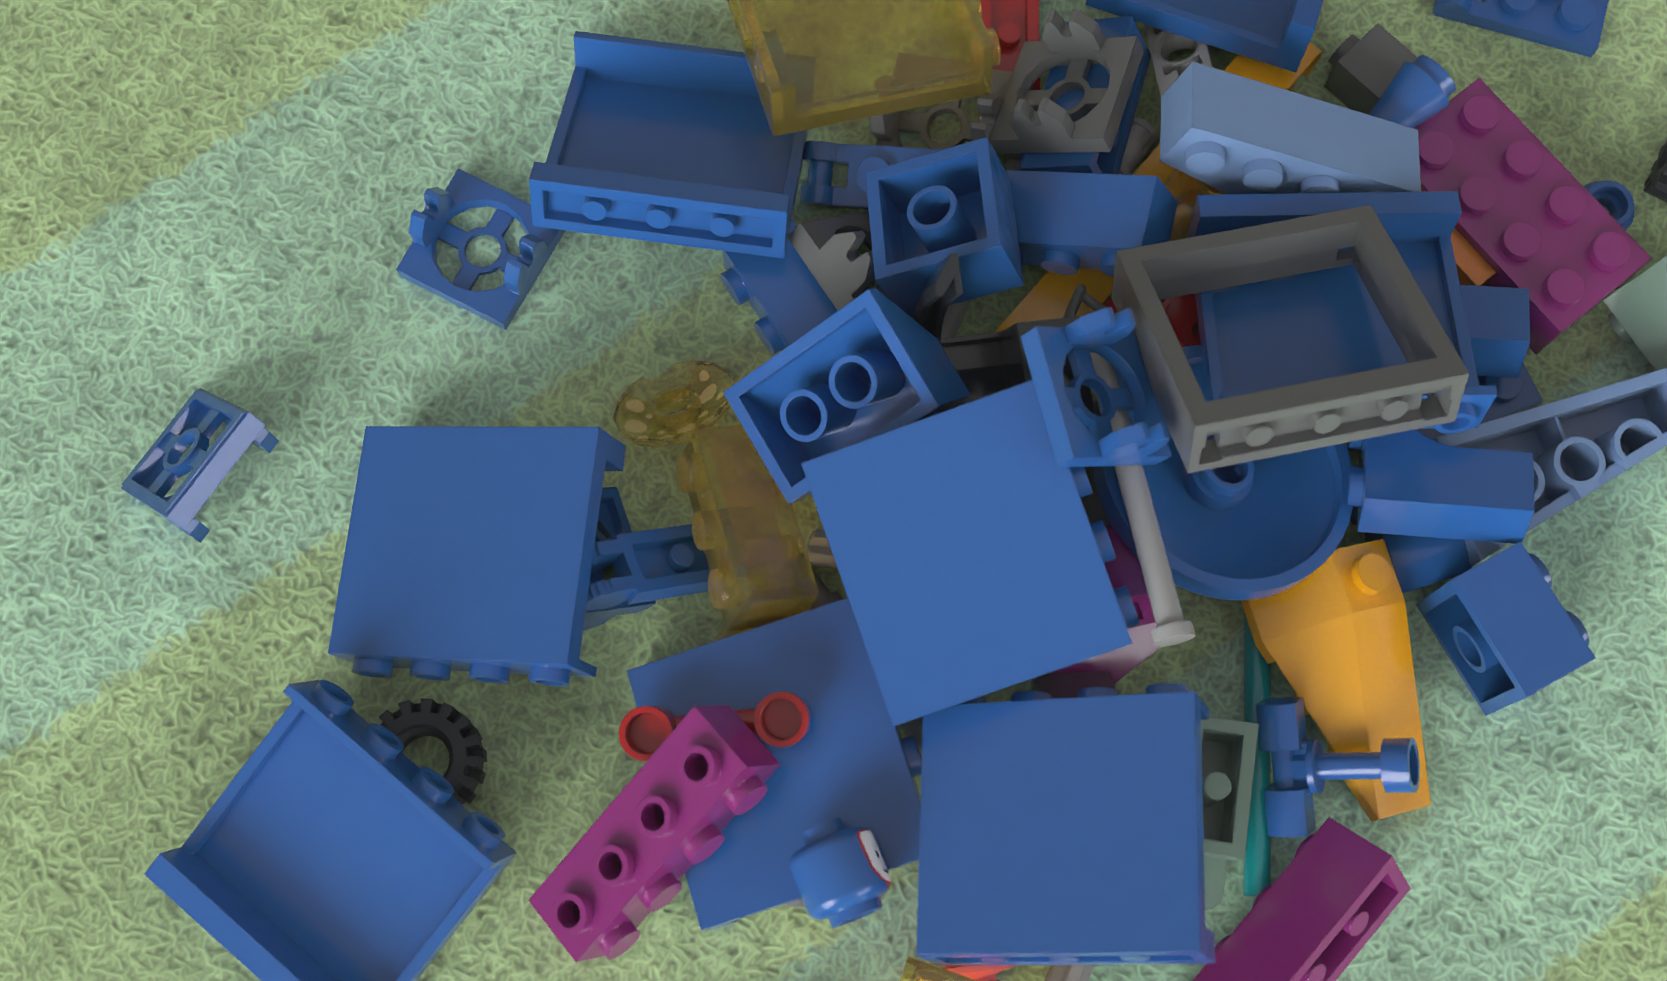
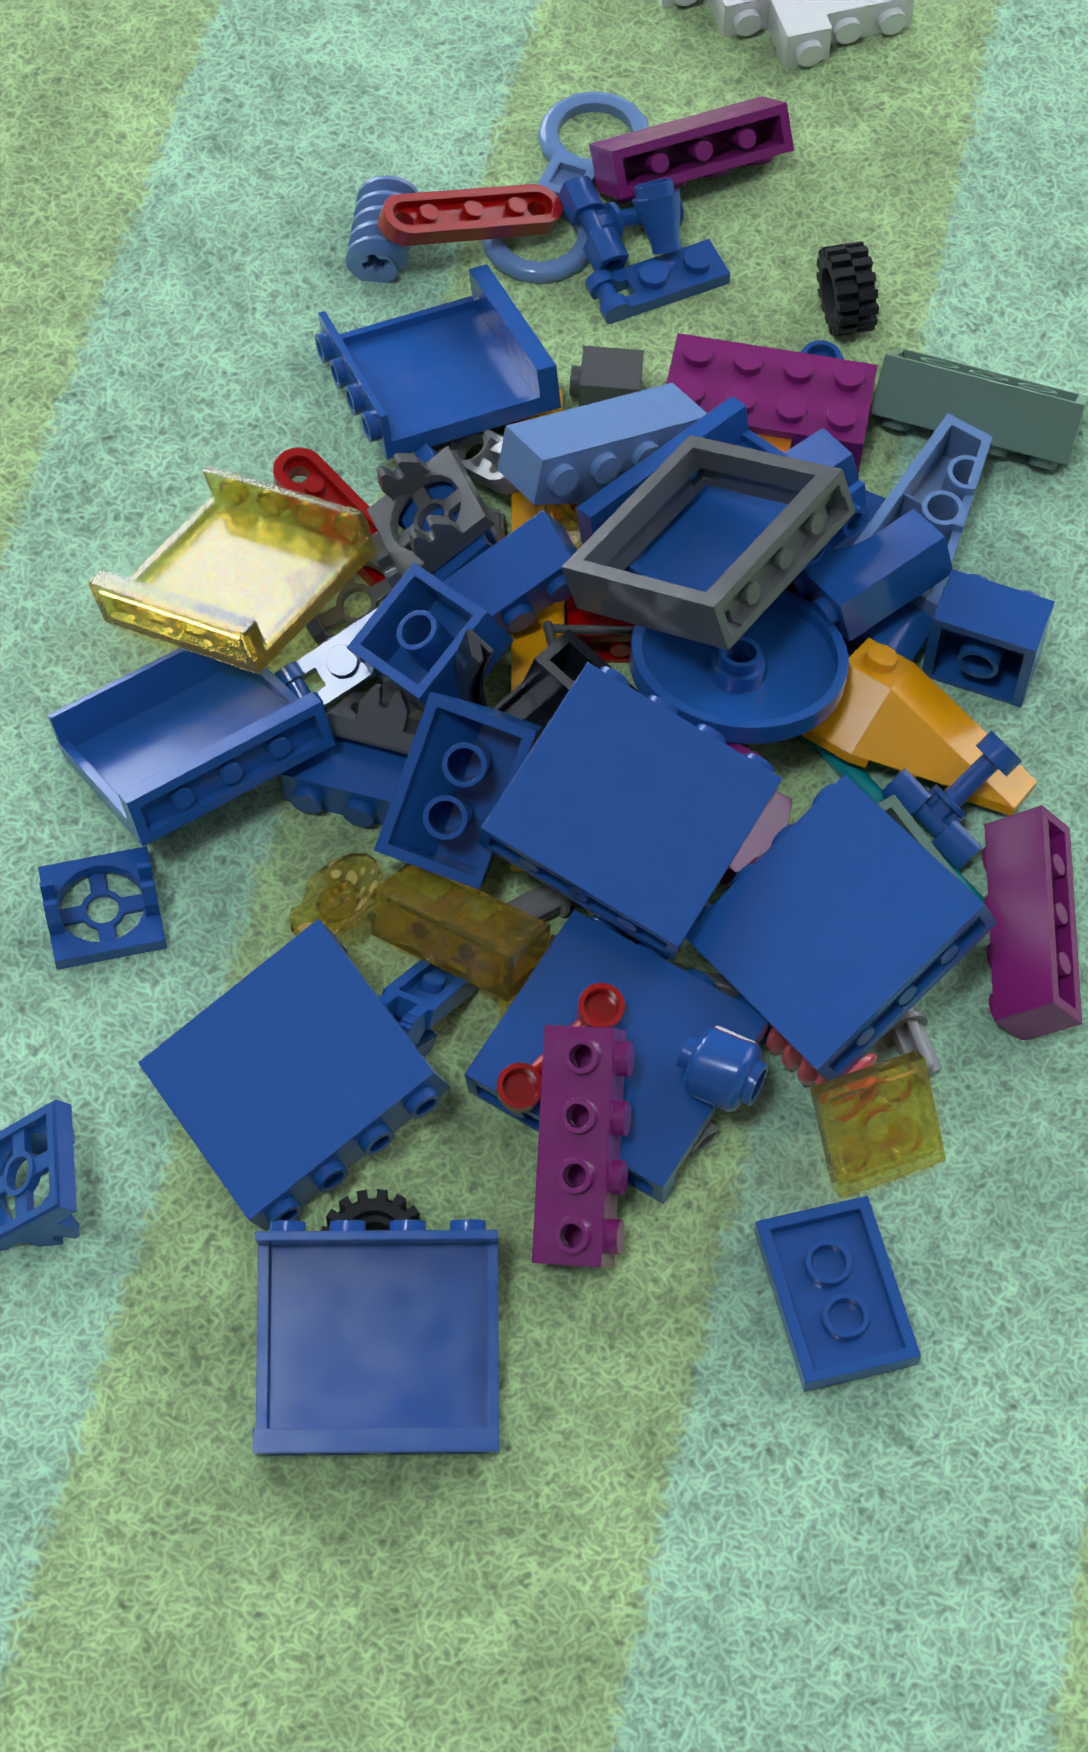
camera: 40 degrees left, 15 degrees down
(1063, 408) = (590, 643): blue piece -> none
(1147, 536) = (797, 756): light grey bar -> none
(1415, 93) = (648, 363): blue cone -> none

